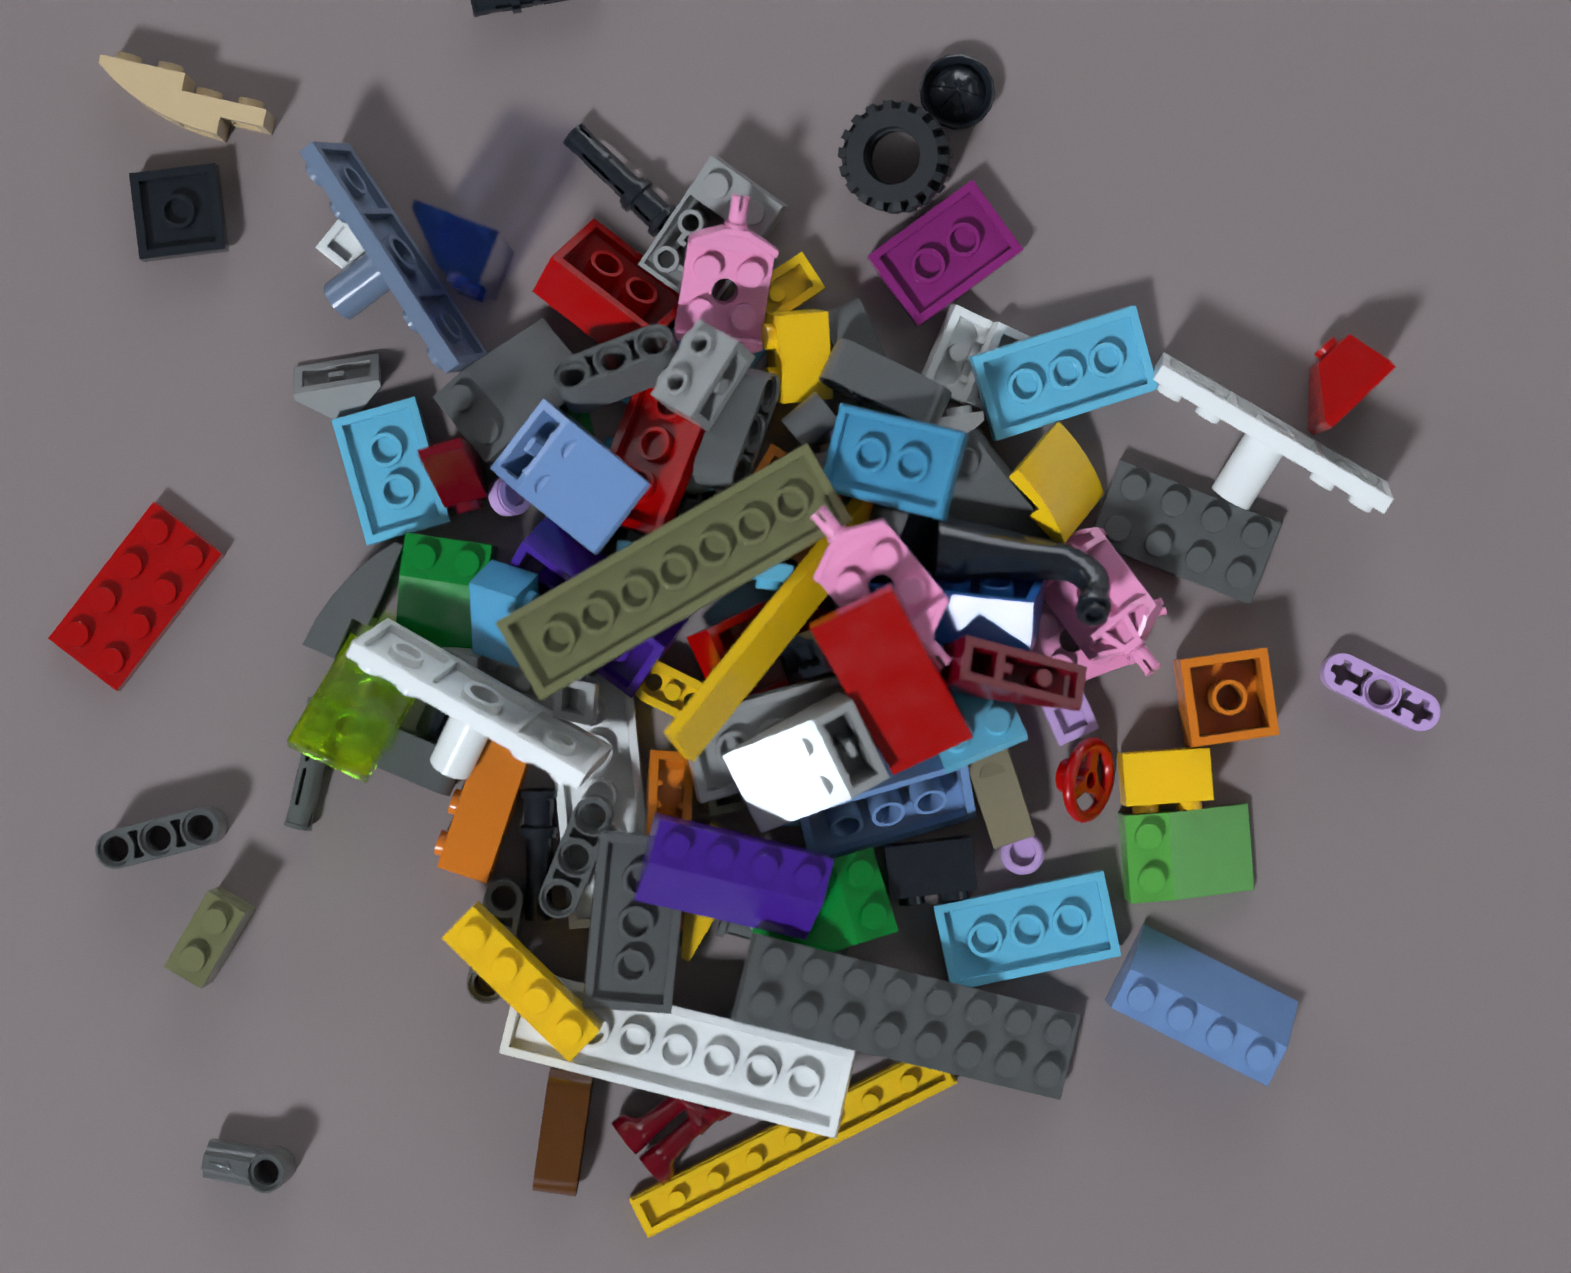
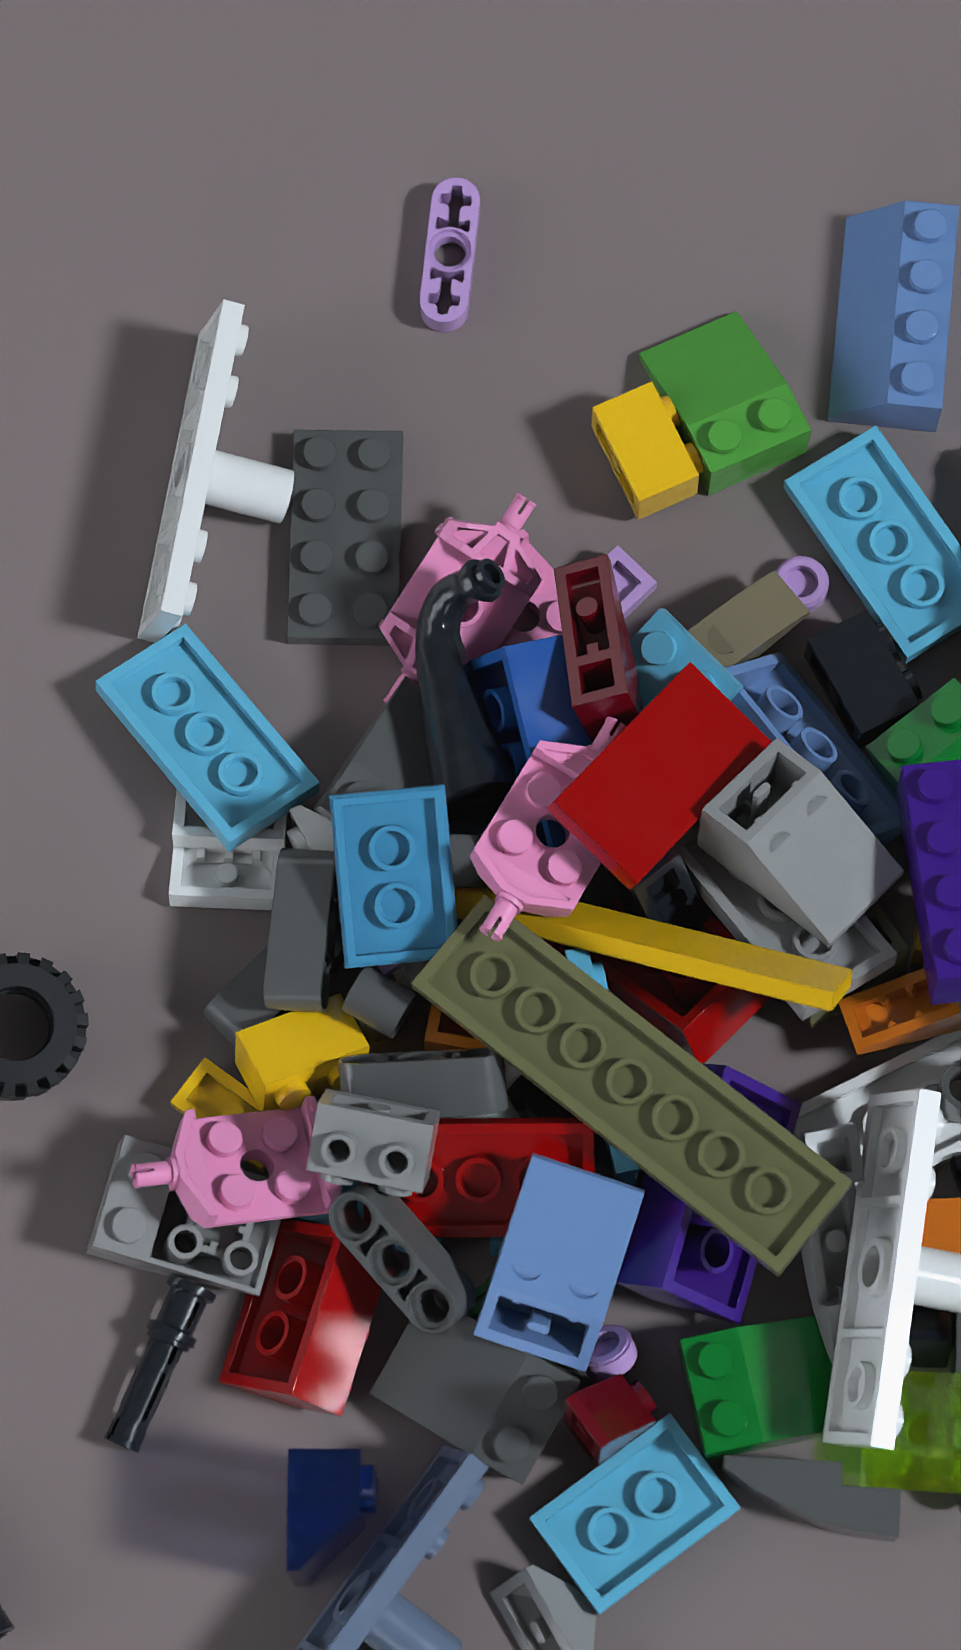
camera: 105 degrees left, 15 degrees down
(494, 595) = (746, 1298): dark azure brick -> none
(674, 689) = (780, 1062): yellow plate -> none
(945, 253) = (111, 932): magenta plate -> none
(1058, 482) = (342, 692): yellow slope -> none
(1080, 777) = (682, 542): red piece -> none
(1225, 697) = (524, 415): orange brick -> none
(1342, 379) = (103, 415): red slope -> none

